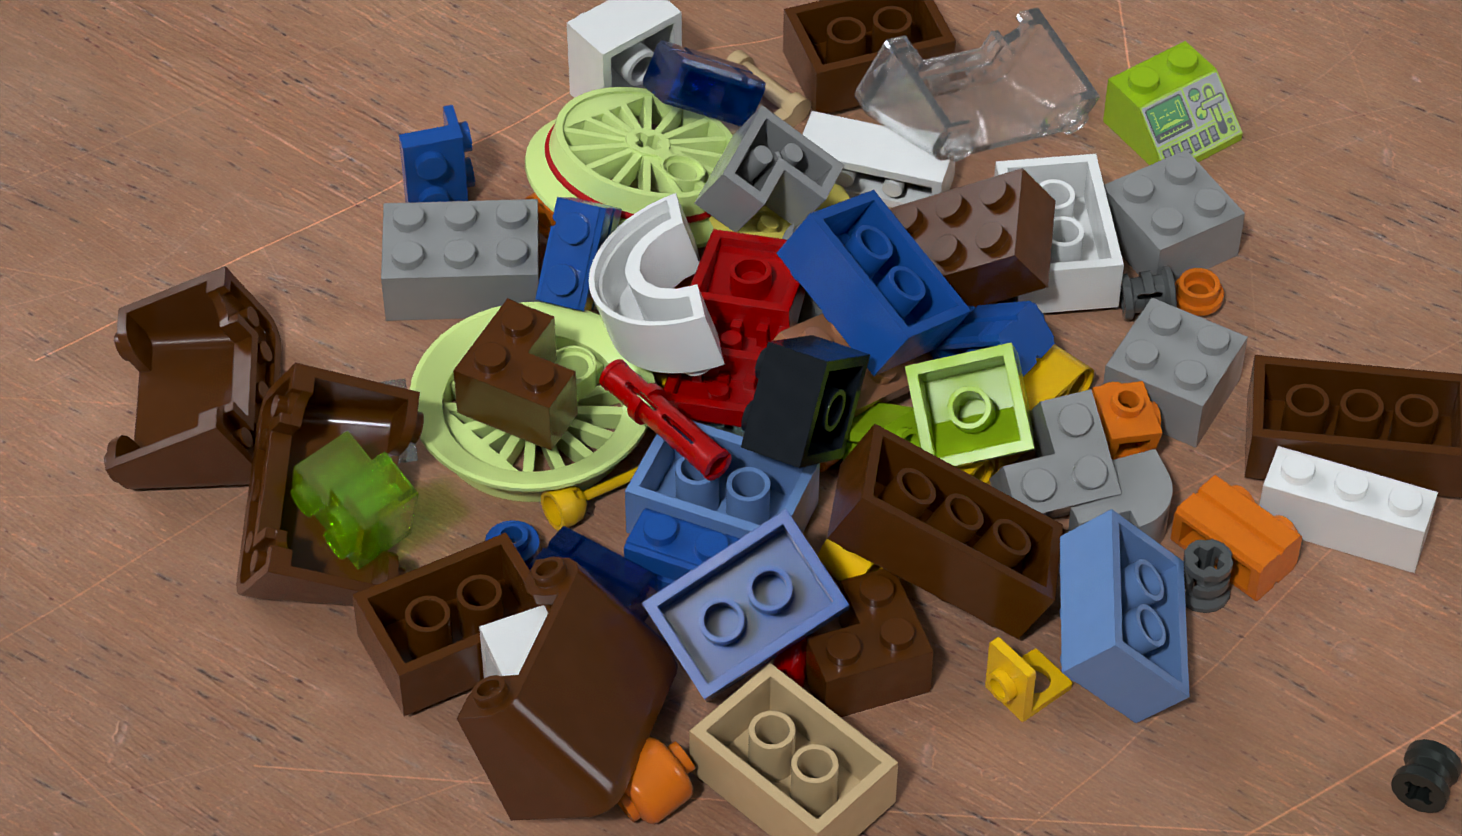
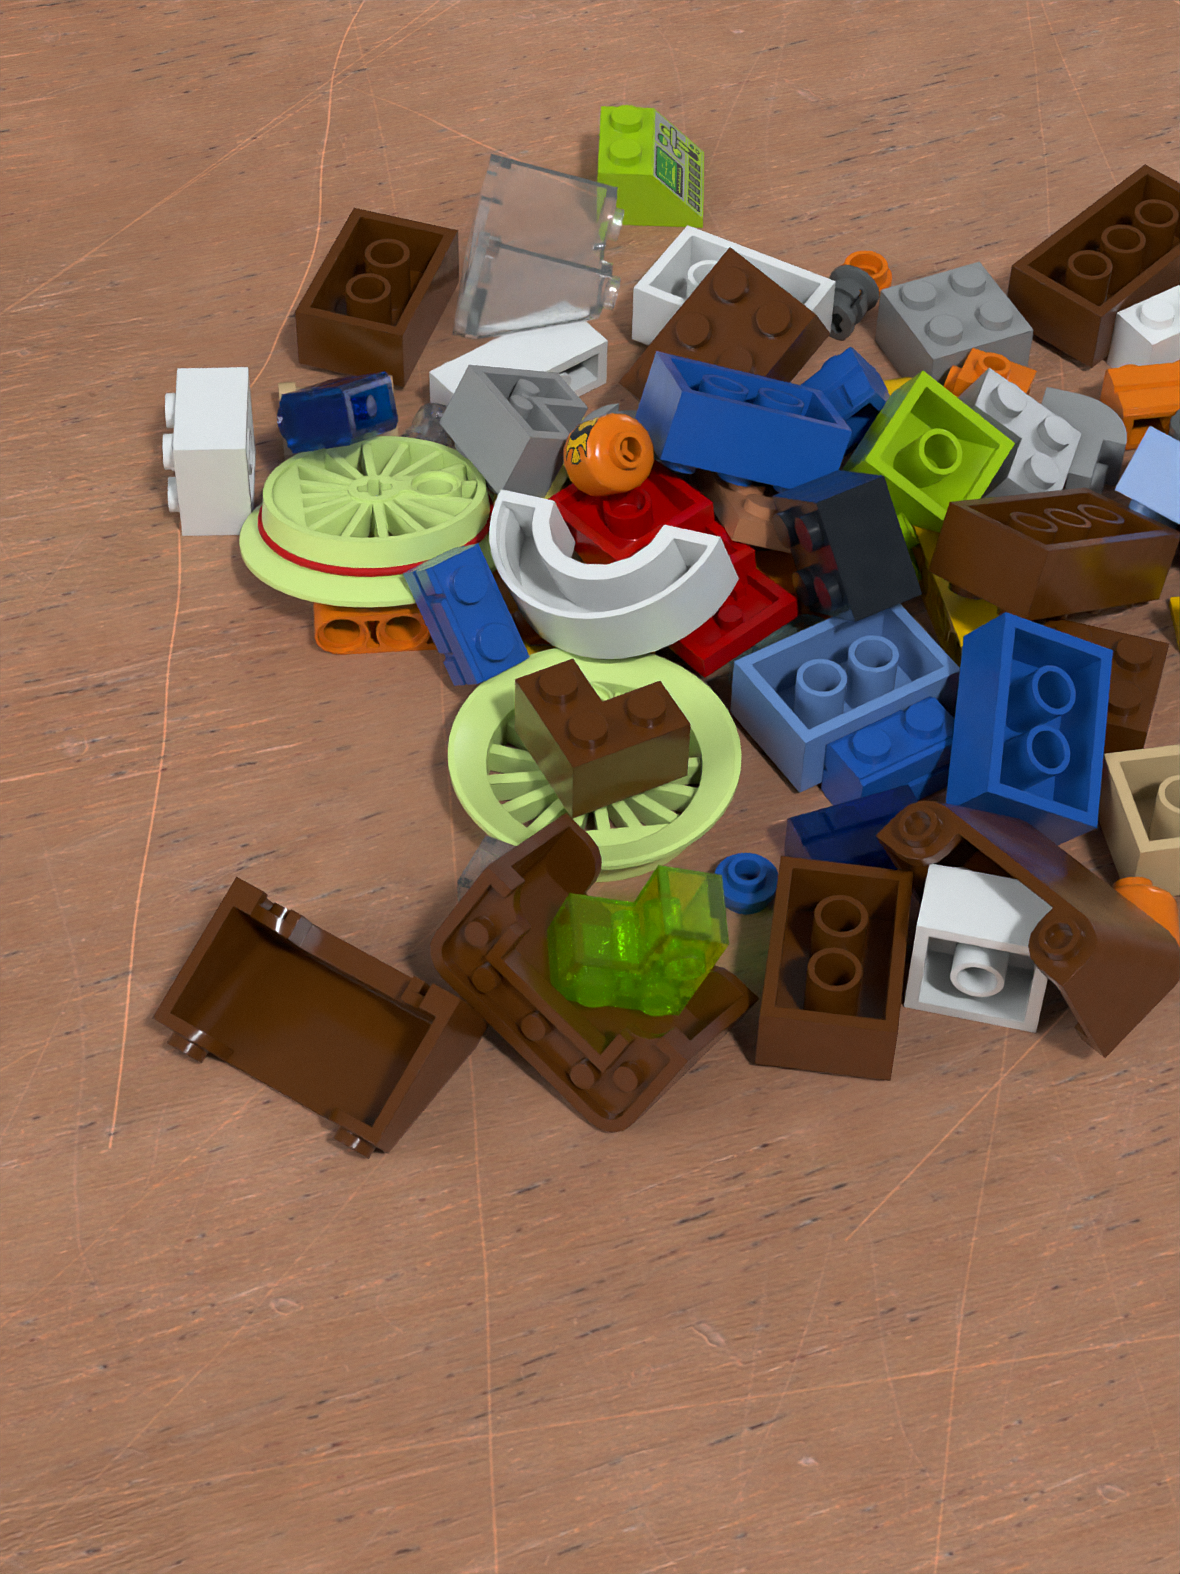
camera: 55 degrees left, 0 degrees up
(436, 161) = (221, 659): blue bracket -> none
(458, 257) = (348, 718): light grey brick -> none
(569, 504) = (743, 812): yellow hinge -> none
(627, 384) = (754, 661): red pin -> none
(776, 222) = (608, 455): none -> orange head
(1174, 217) = (783, 220): light grey brick -> none

